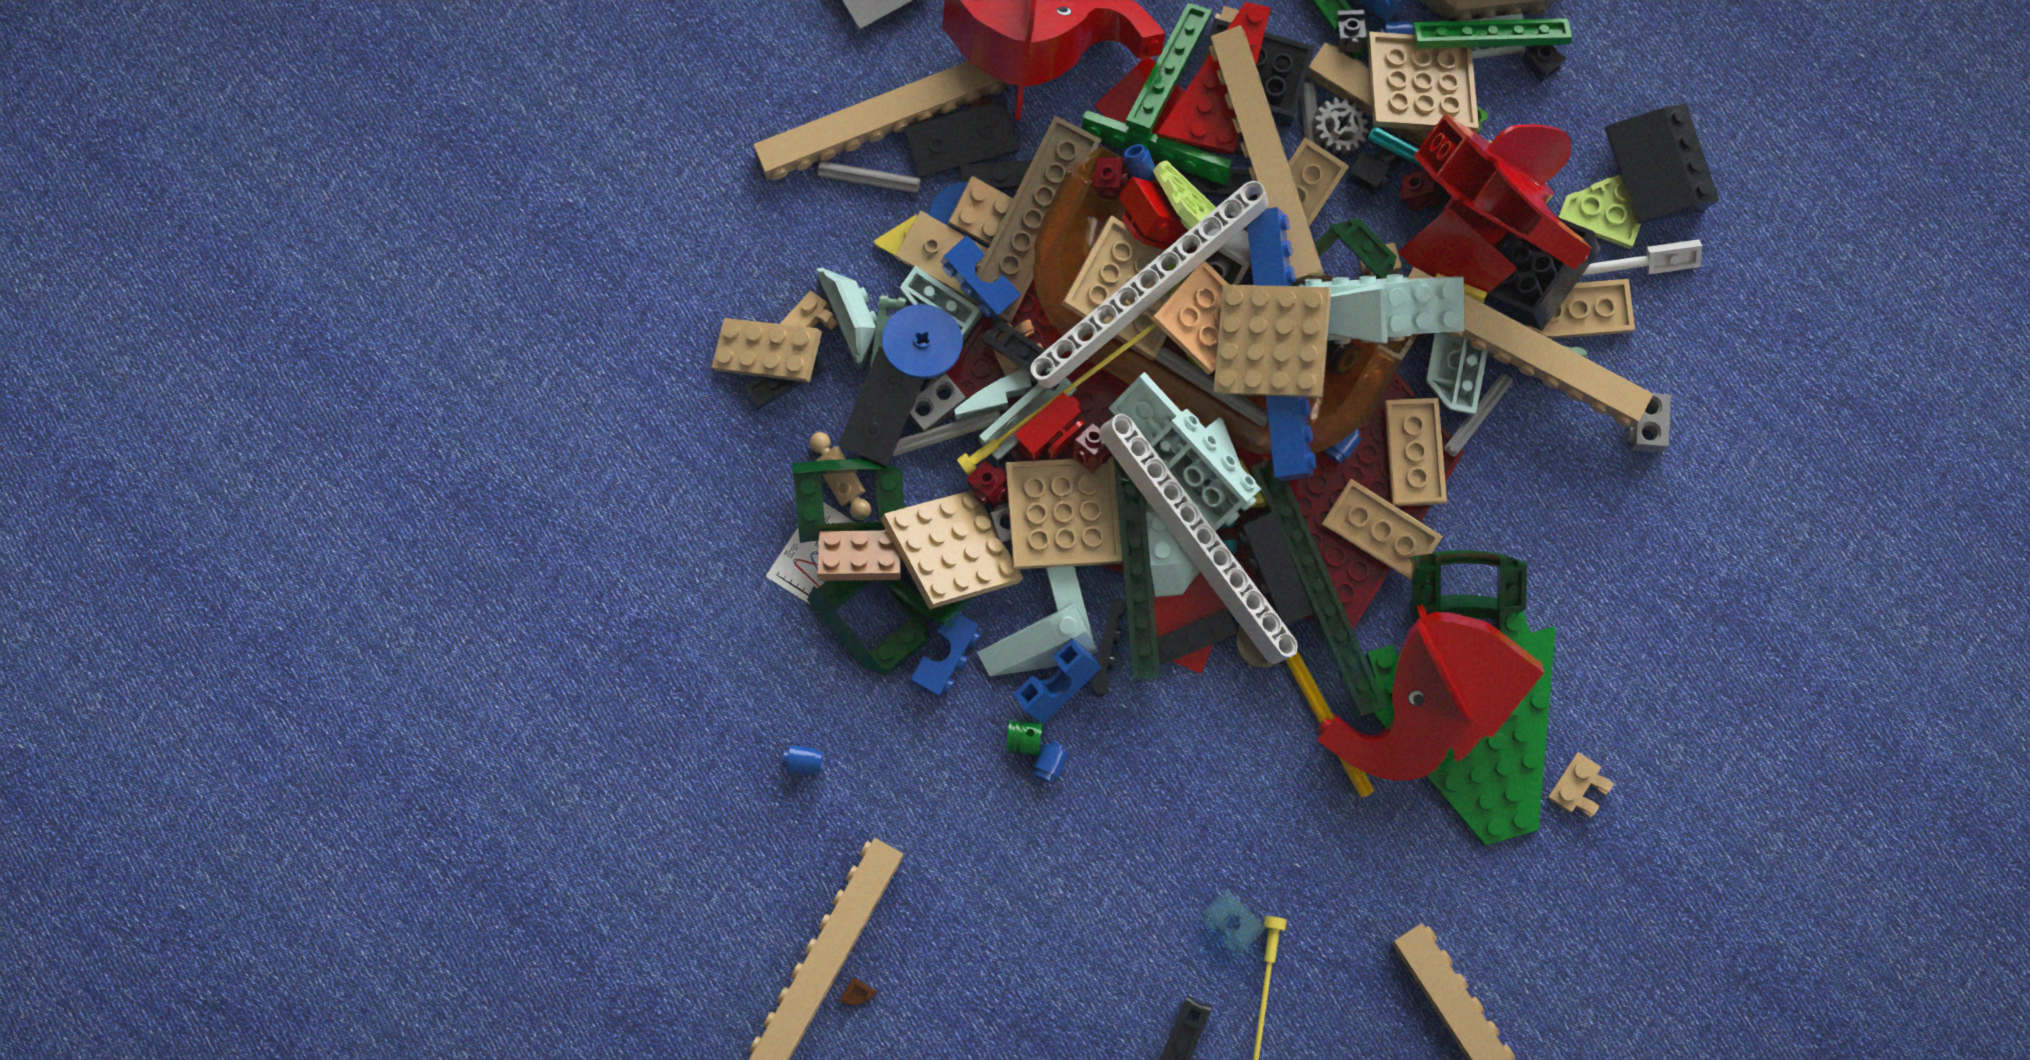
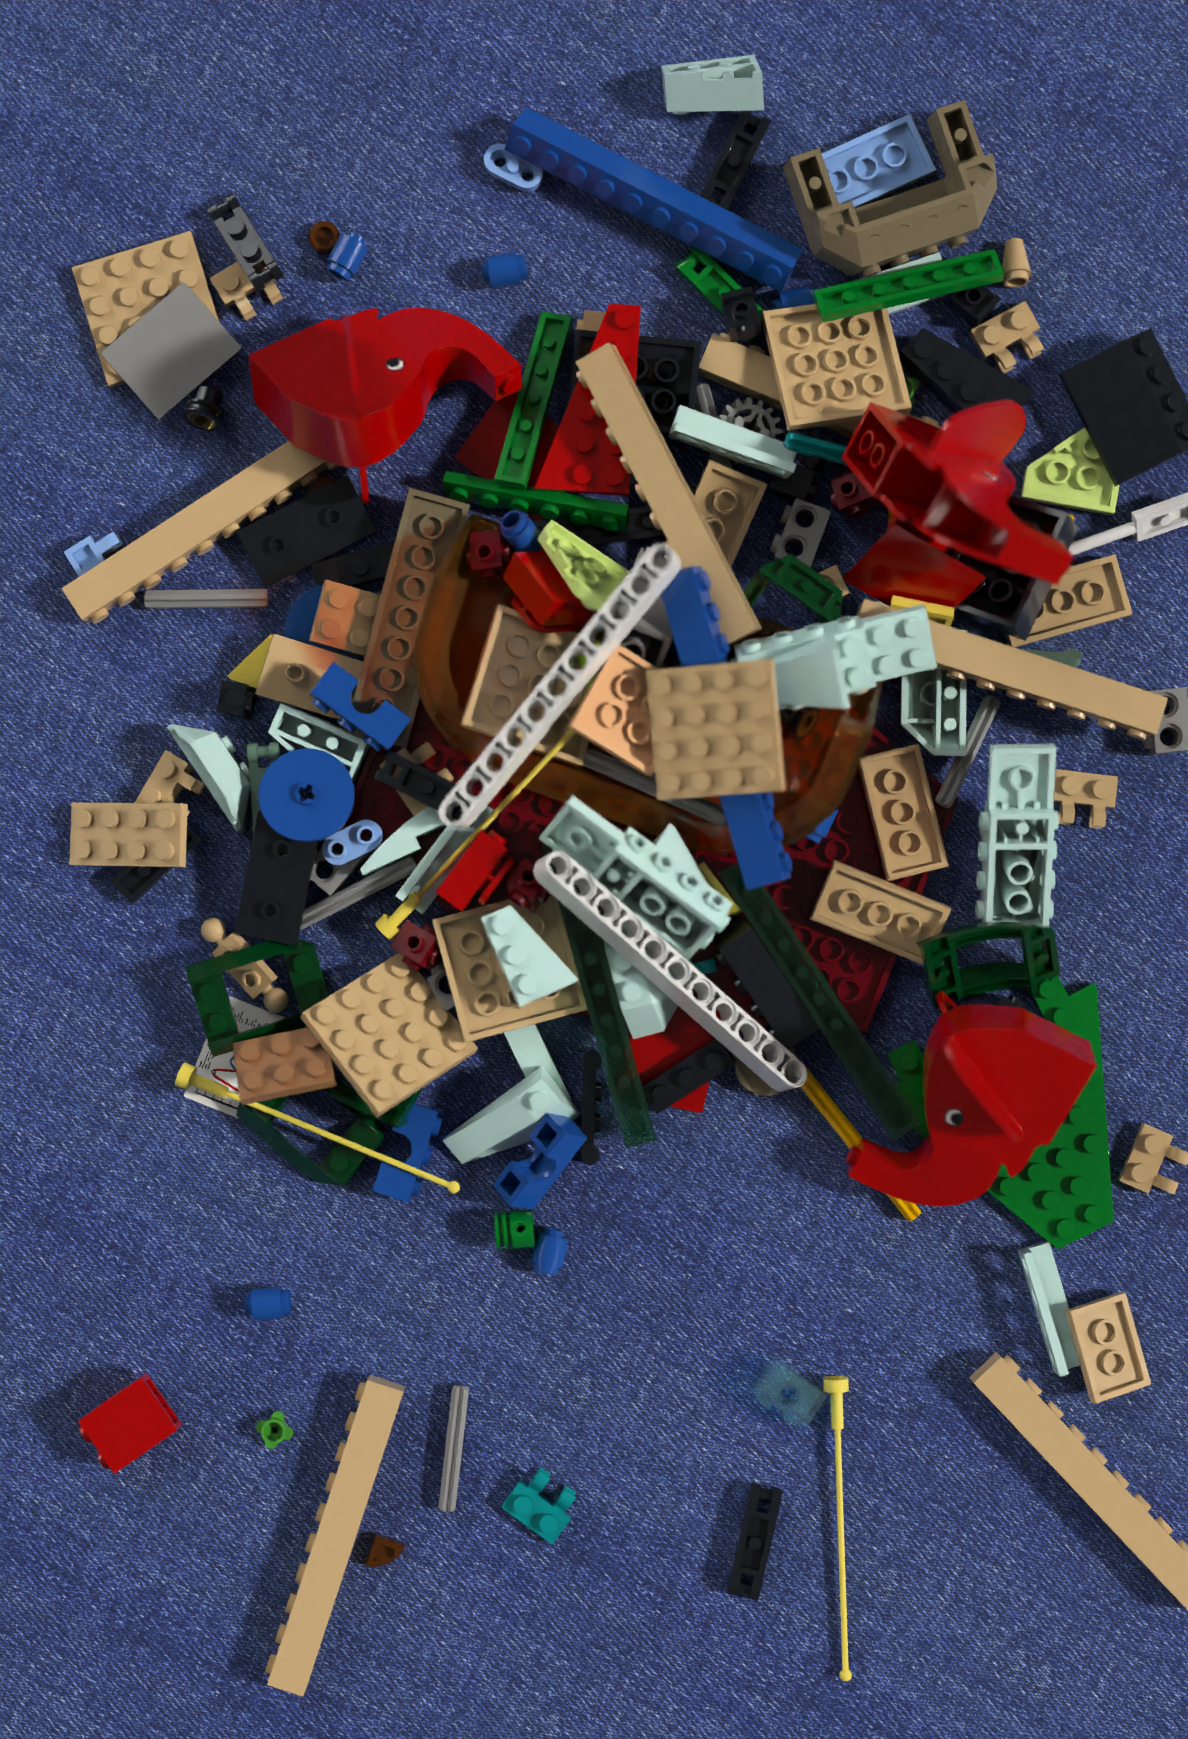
camera: 15 degrees left, 10 degrees up
(664, 836) = (129, 1423): none -> red brick
(774, 557) = (187, 1077): none -> light yellow piece
(781, 122) = (90, 553): none -> light blue plate
(782, 877) = (265, 1428): none -> bright green plate
(878, 261) = (237, 700): none -> black brick
(898, 29) = (204, 410): none -> black piece
(935, 915) = (453, 1448): none -> light grey axle
(952, 391) = (353, 844): none -> light blue plate
(996, 984) = (537, 1511): none -> teal plate
(1078, 506) = (524, 957): none -> light aqua wedge
(1326, 128) = (732, 442): none -> light aqua fence
(1371, 217) = (806, 538): none -> light grey brick
(1472, 893) = (1049, 1305): none -> light aqua fence
(1509, 483) = (1018, 836): none -> light aqua wedge
(1512, 105) = (957, 376): none -> black wedge
(1515, 935) = (1108, 1347): none -> tan plate
(1566, 87) = (1004, 331): none -> tan plate
(1571, 466) = (1084, 789): none -> tan plate
(1582, 36) = (1015, 264): none -> tan cone

